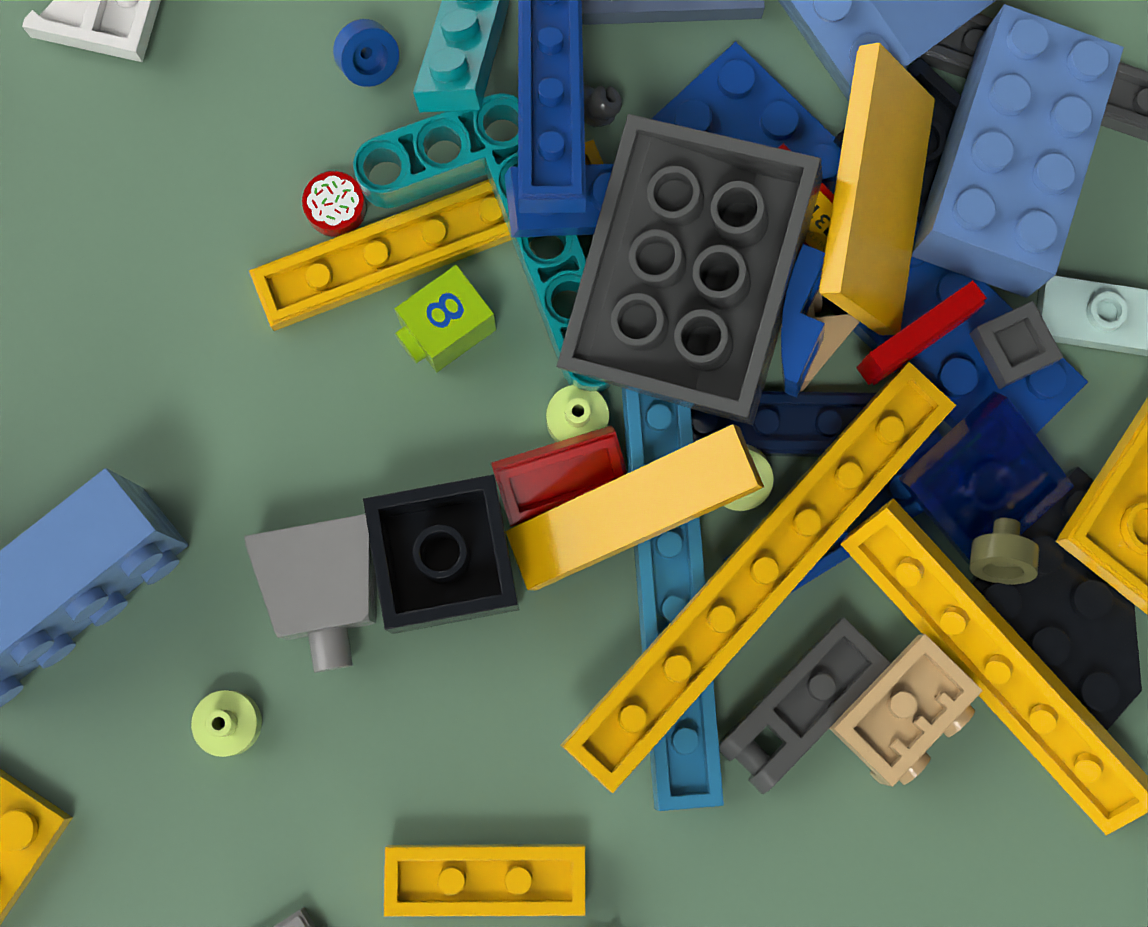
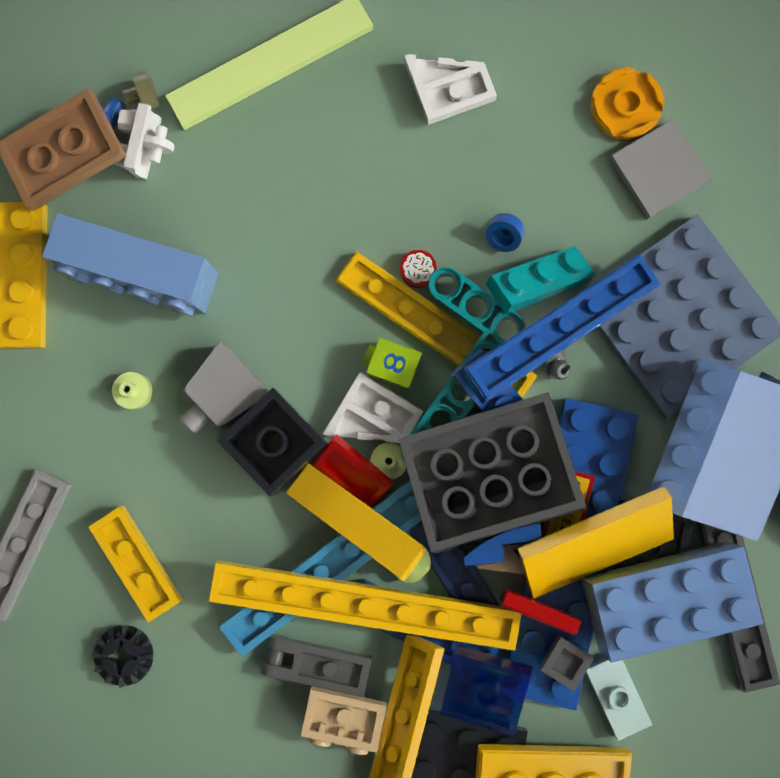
camera: 65 degrees right, 5 degrees up
(496, 392) = (373, 413): none -> white wing
(1004, 555) = (453, 722): olive tile -> none

